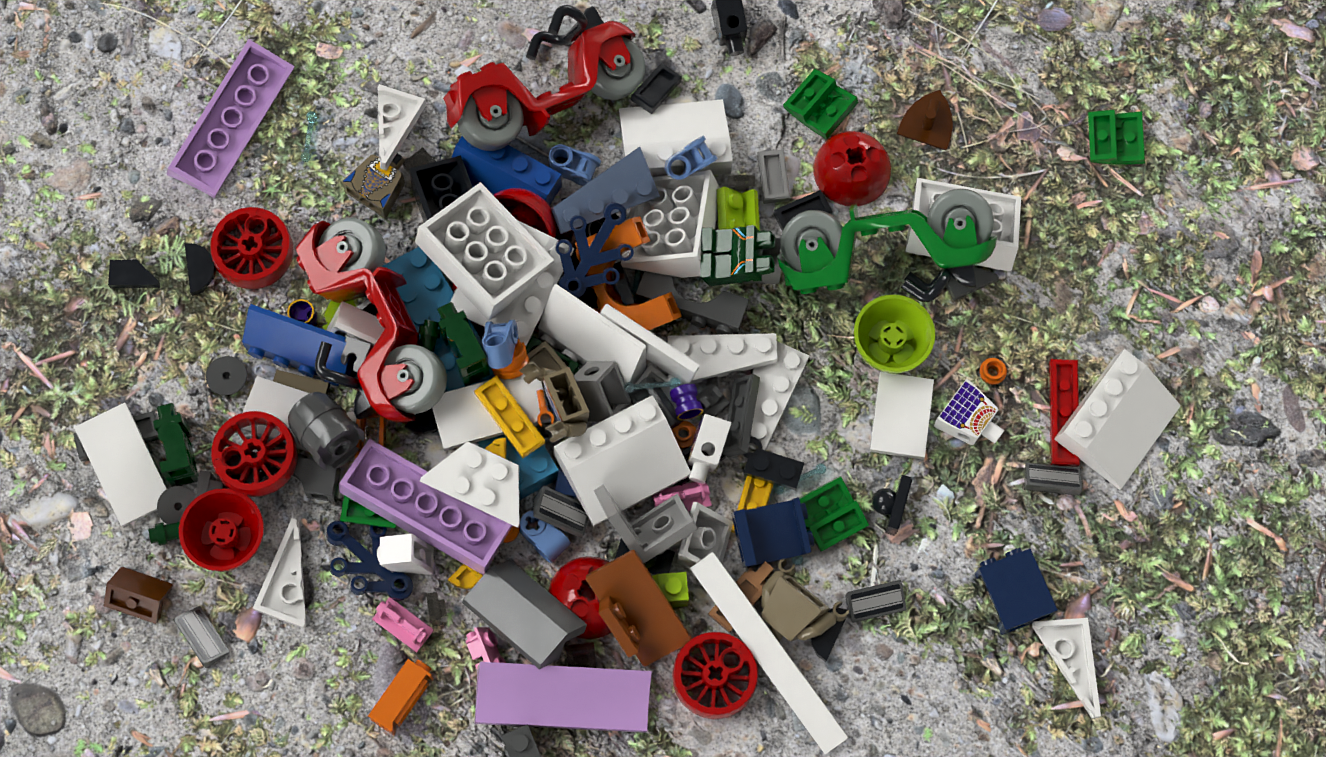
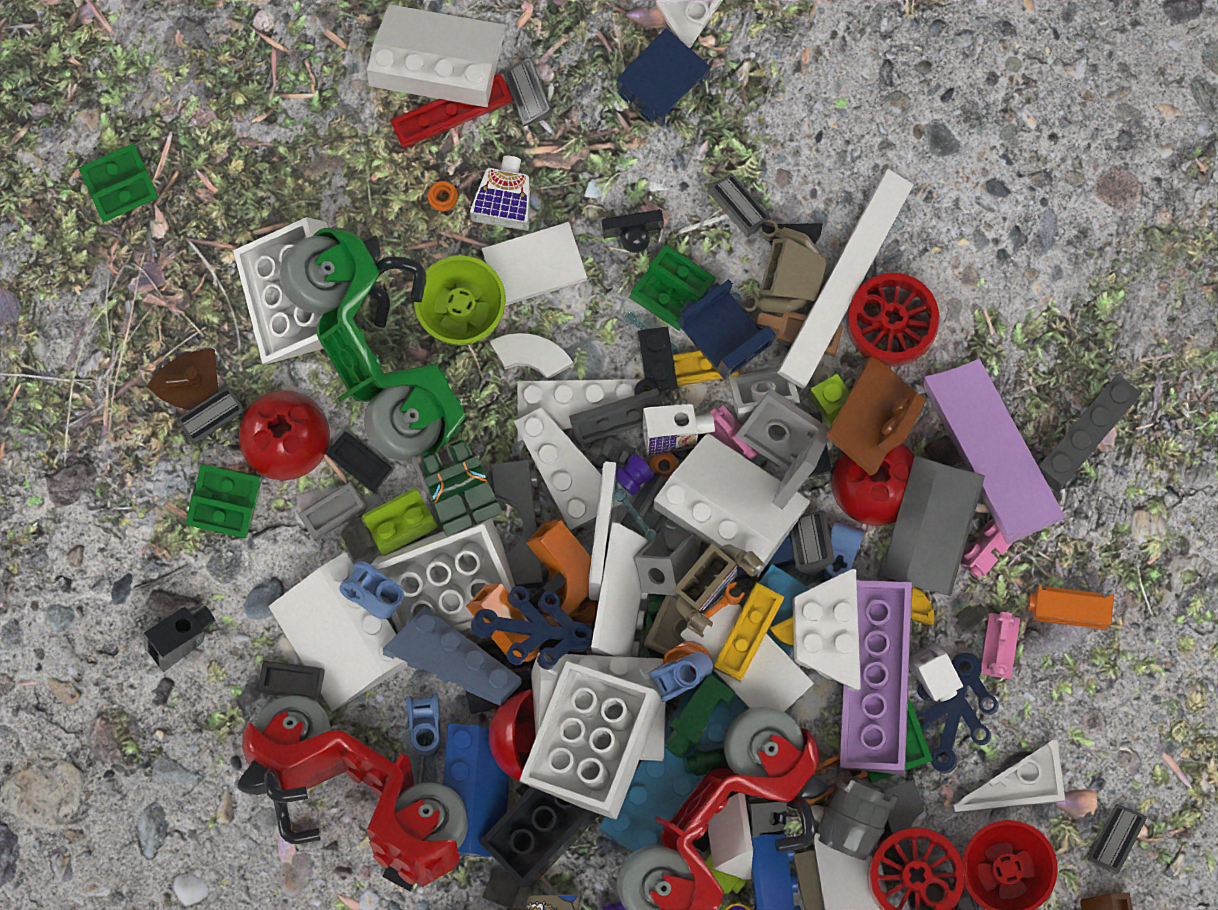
camera: 110 degrees left, 5 degrees up
(829, 379) = (531, 351): none -> white tile
(892, 122) = (210, 415): none -> slope

